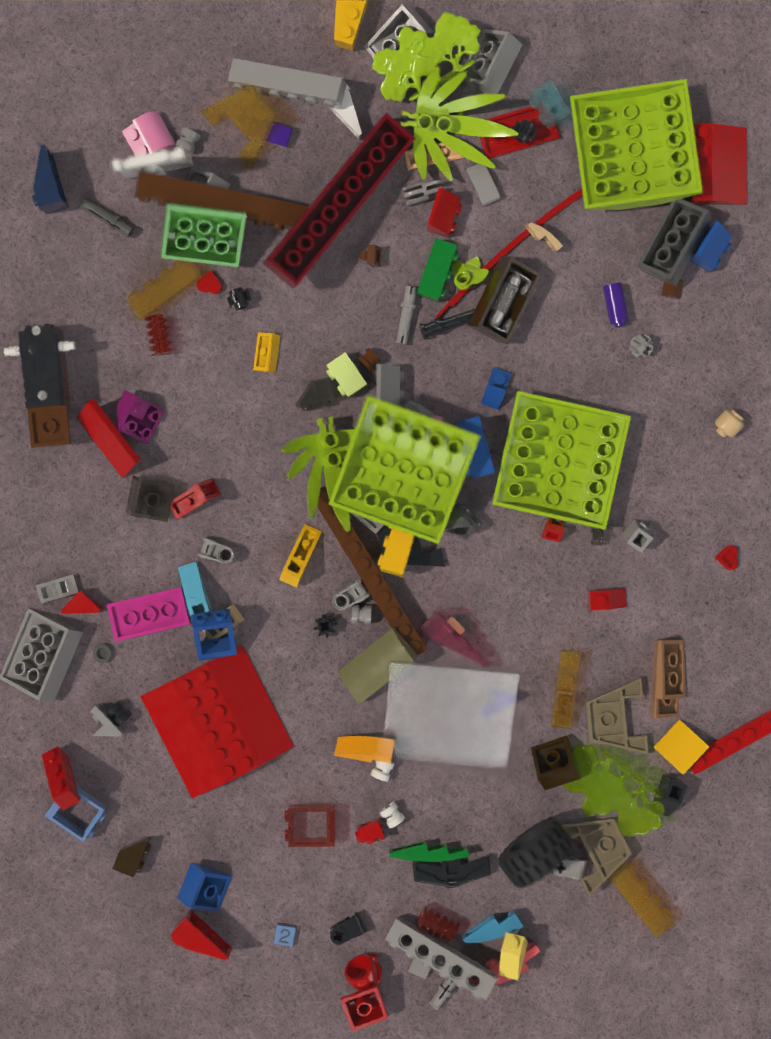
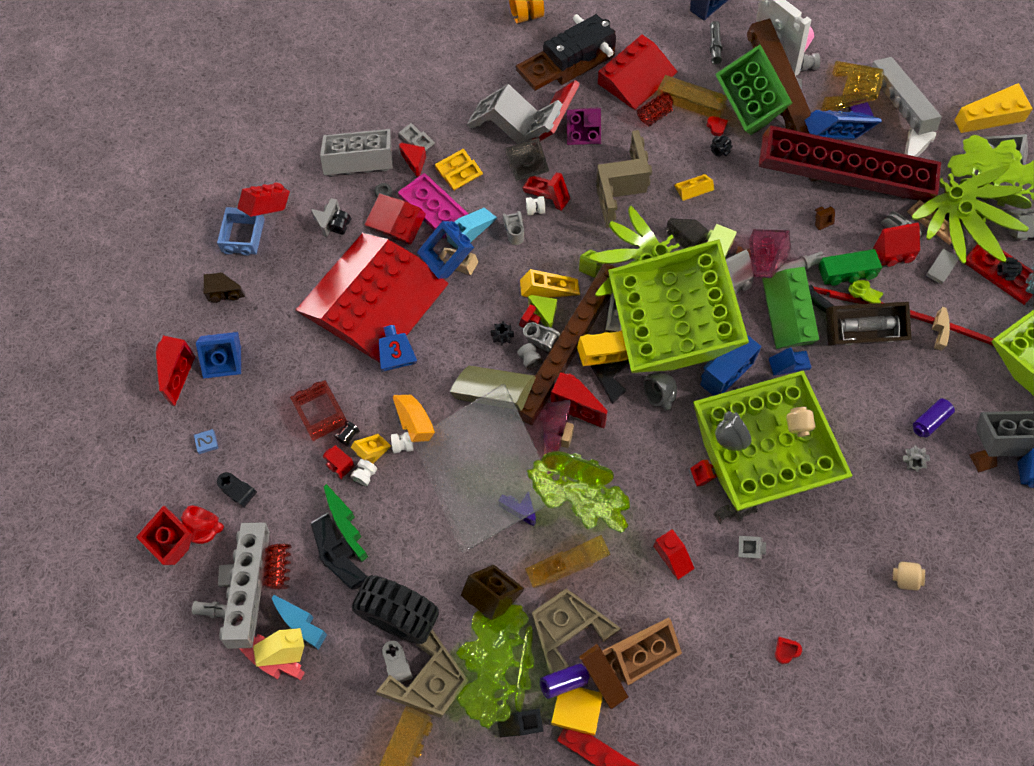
camera: 60 degrees right, 25 degrees down
(92, 483) = (515, 115): none -> light grey bracket
(102, 323) = (636, 72): none -> red slope
(127, 567) = (458, 169): none -> yellow slope
(146, 660) = (395, 218): none -> red slope
(204, 523) = (531, 205): none -> white wheel
(226, 419) = (623, 178): none -> dark tan bracket
(289, 175) = (840, 124): none -> blue slope
(291, 731) = (395, 350): none -> blue torso
(295, 500) = (589, 267): none -> lime slope
(322, 593) = (529, 316): none -> red tile
(323, 574) = (545, 308): none -> lime slope
(347, 811) = (347, 433): none -> black bush
(373, 798) = (371, 447): none -> yellow slope
(386, 341) = (768, 251): none -> clear pink wedge
(428, 602) = (583, 402): none -> red slope
(450, 357) = (790, 308): none -> bright green slope
(525, 649) = (585, 499): none -> clear neon green plant
(543, 494) = (732, 432): none -> dark grey piece
(564, 430) = (800, 421): none -> tan head
(657, 746) = (564, 680): none -> dark purple brick
(672, 716) = (603, 676): none -> reddish brown tile

